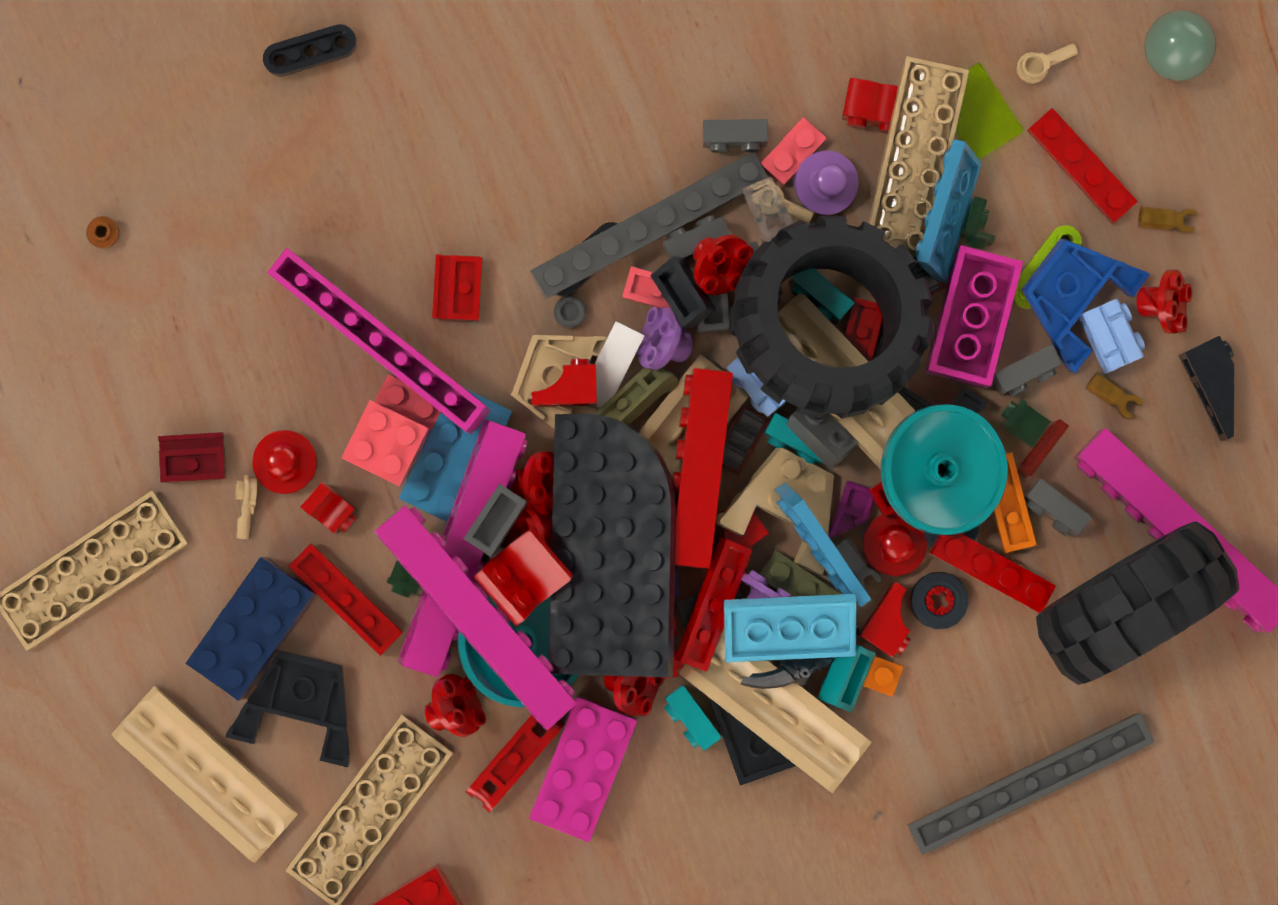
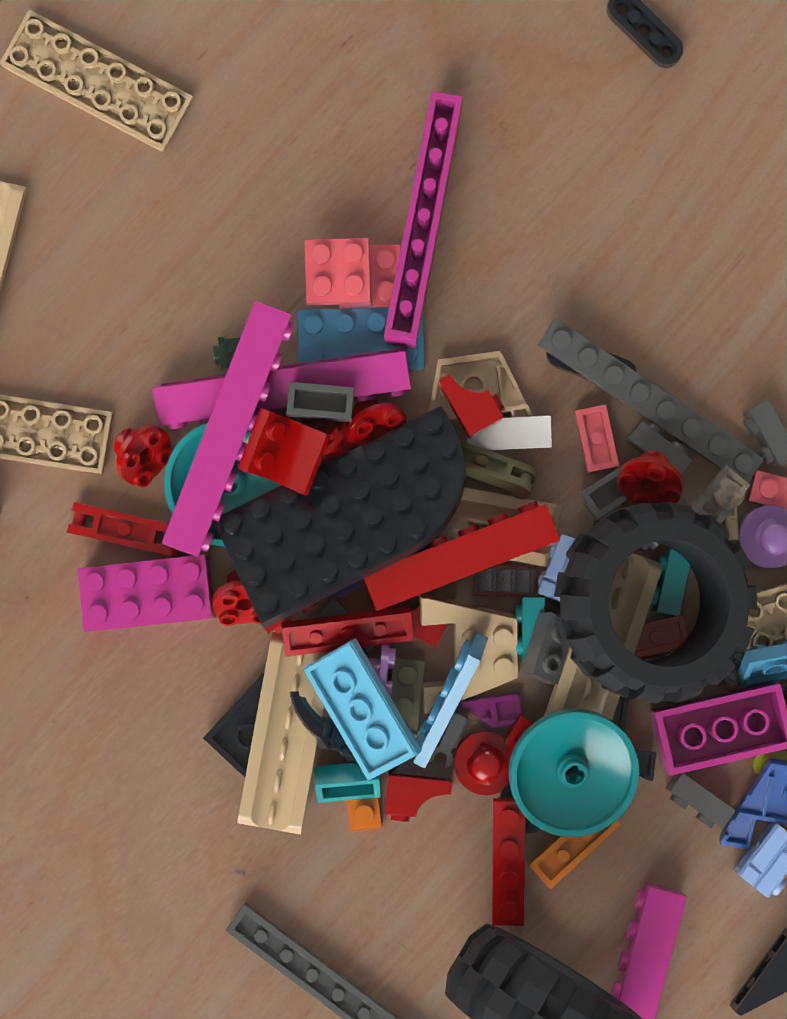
camera: 65 degrees right, 0 degrees up
(192, 457) = (239, 115): dark red plate -> none
(246, 492) = (233, 176): tan plate -> none
(251, 628) = (118, 243): dark blue brick -> none
(284, 462) = (277, 196): red plate -> none
(302, 691) = (87, 316): black wing -> none
(330, 509) = (256, 255): red arch -> none
(345, 599) = (186, 311): red plate -> none
(457, 287) = (506, 264): red plate -> none
(569, 312) = (537, 373): dark grey tile -> none
(663, 339) = (557, 466): medium lavender plate -> none
(681, 292) = (606, 460): black piece -> none
(684, 707) = (235, 675): teal piece -> none
(955, 596) = (443, 839): black bush -> none
(1024, 422) = (652, 821): clear green bracket -> none
(1042, 448) = (638, 850): clear red tile -> none
(1066, 515) = (594, 880): dark grey piece -> none
(1112, 394) = (719, 887): pearl gold bar -> none

